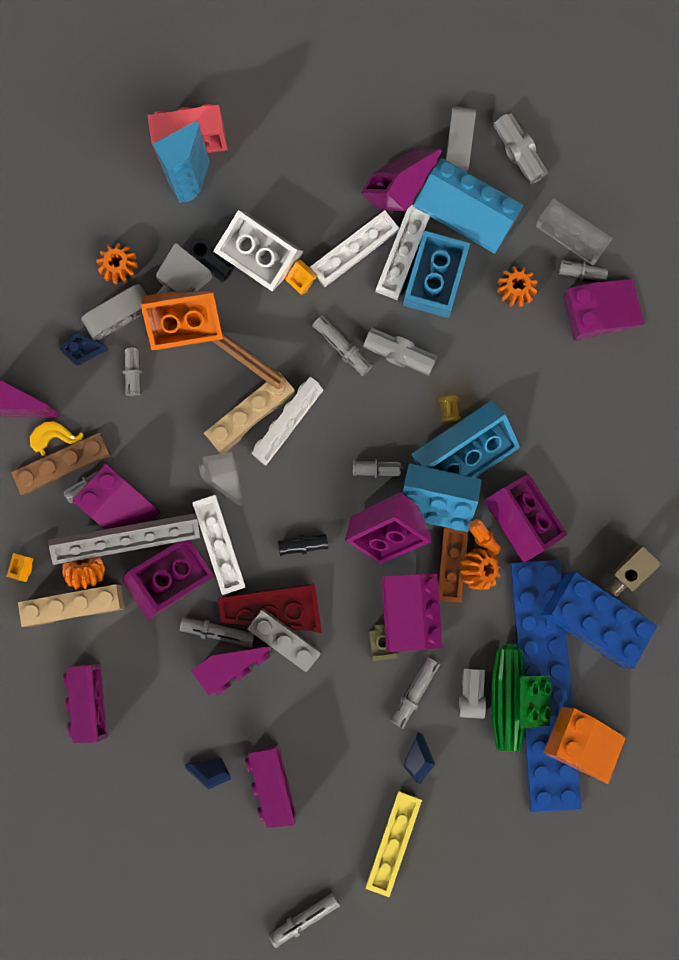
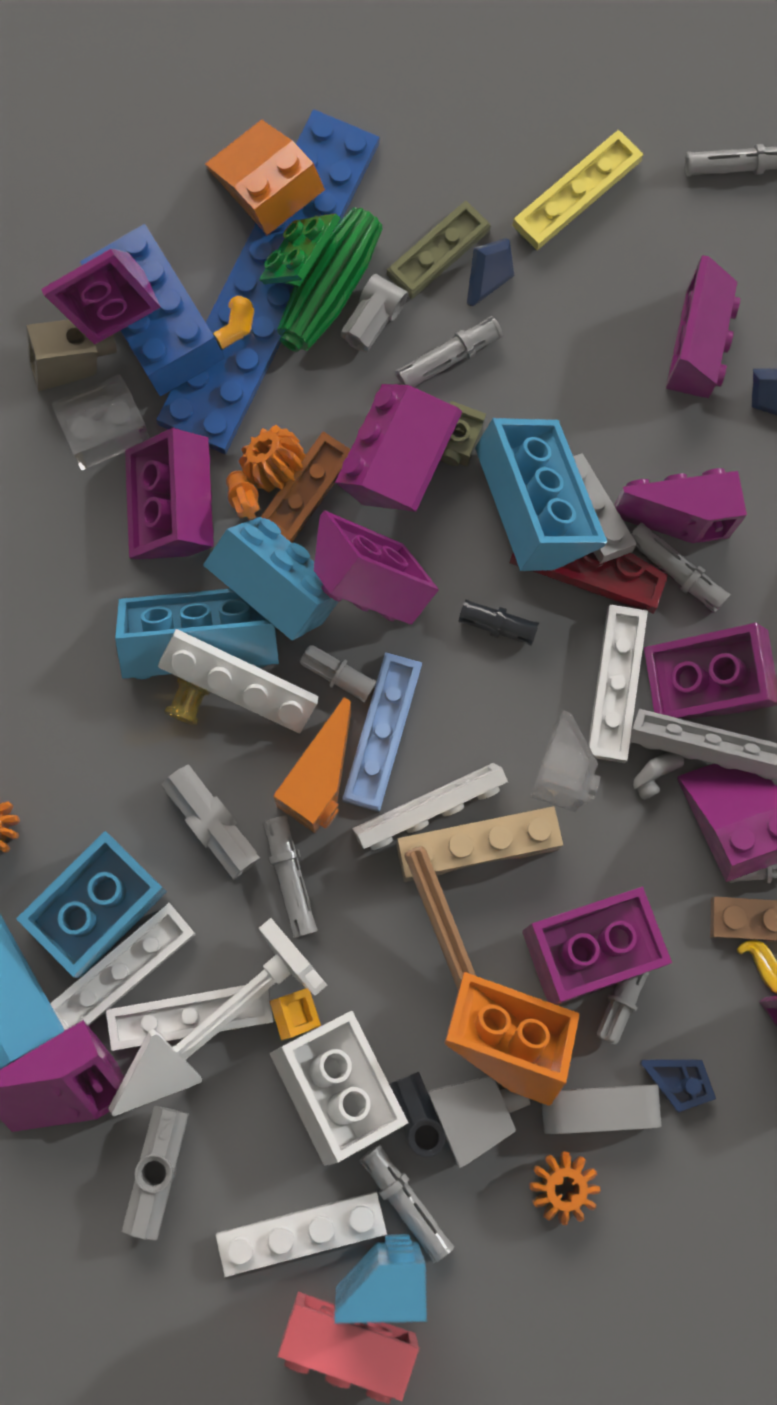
camera: 160 degrees left, 5 degrees down
(159, 390) = (596, 946): none -> magenta slope
(175, 506) = (655, 768): none -> light grey arm
(202, 219) = (403, 1199): none -> light grey pin
(240, 176) = (300, 1233): none -> white plate
(317, 628) = (539, 493): none -> dark azure slope
(326, 152) = (149, 1198): none -> light grey piece
(335, 450) = (382, 732): none -> light blue tile
(352, 212) = (163, 1069): none -> white piece
(353, 393) = (314, 782): none -> orange slope
(427, 430) = (238, 681): none -> white plate
(456, 758) = (438, 249): none -> olive tile
(545, 640) = (239, 322): none -> light orange arm
(592, 542) = (100, 421): none -> clear slope
(626, 599) = (103, 295): none -> magenta slope

